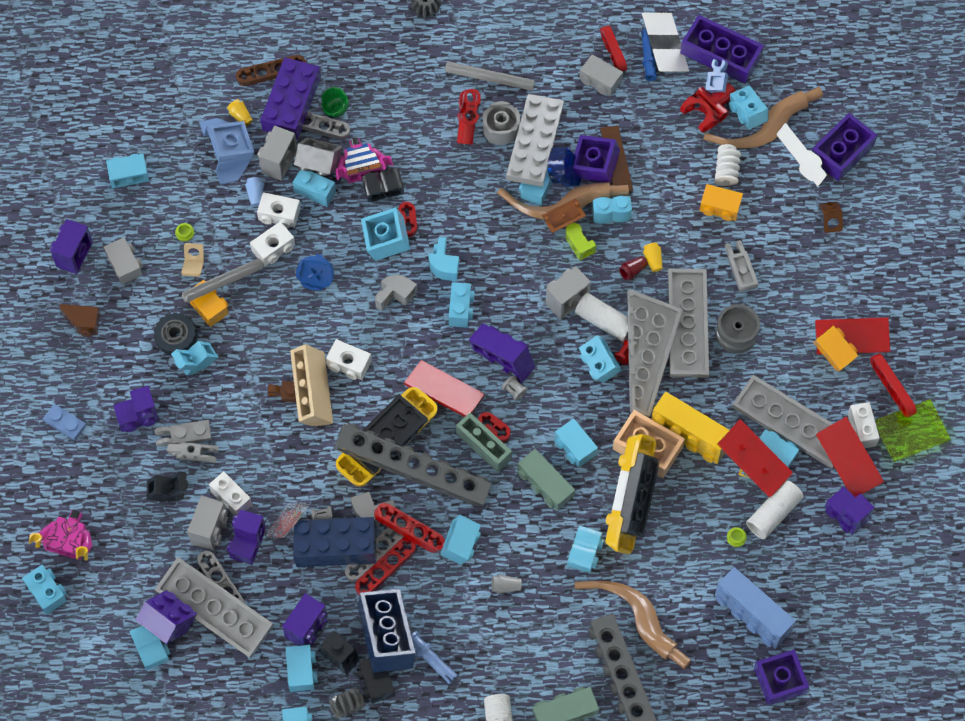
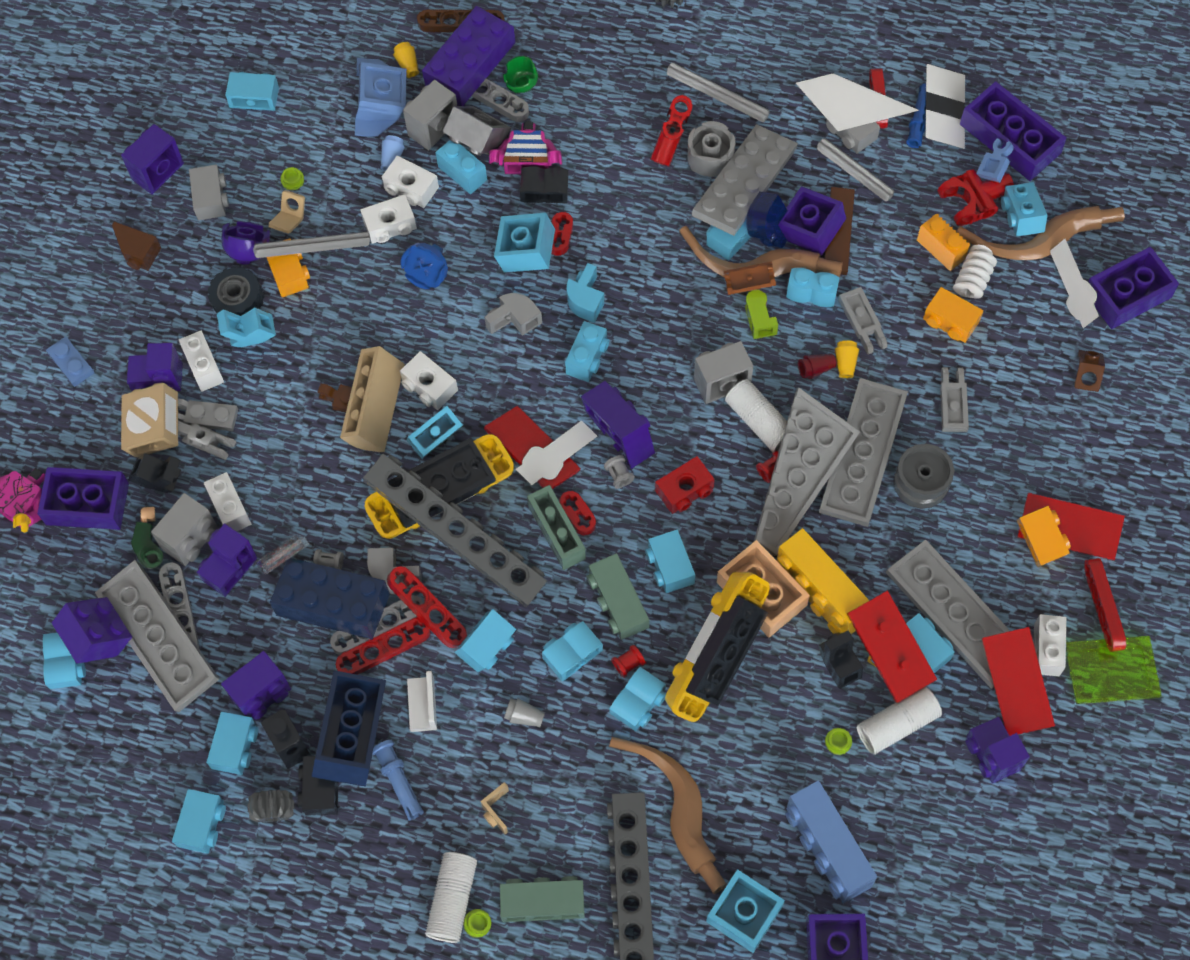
camera: 20 degrees right, 0 degrees up
(119, 522) = (83, 498): none -> dark purple brick
(147, 449) = (149, 420): none -> tan brick
(168, 291) = (240, 240): none -> dark purple cylinder
(169, 393) = (201, 361): none -> white brick
(181, 547) = (145, 549): none -> dark green arm
(368, 397) = (434, 432): none -> medium azure brick
(429, 598) = (422, 703): none -> white panel
(460, 394) = (550, 460): none -> white sticker
(508, 663) = (490, 816): none -> tan bracket
(525, 528) = (572, 650): none -> medium azure brick
(568, 524) = (628, 661): none -> red bush
(569, 374) = (691, 473): none -> red brick
(594, 60) = (848, 103): none -> white sticker
(599, 359) = (736, 465): medium azure brick -> none
(613, 109) = (855, 169): none -> light grey axle
(655, 223) = (862, 318): none -> light grey hinge
(697, 149) = (943, 242): none -> light orange brick
(710, 673) = (745, 911): none -> medium azure brick
(720, 478) = (841, 659): none -> black brick

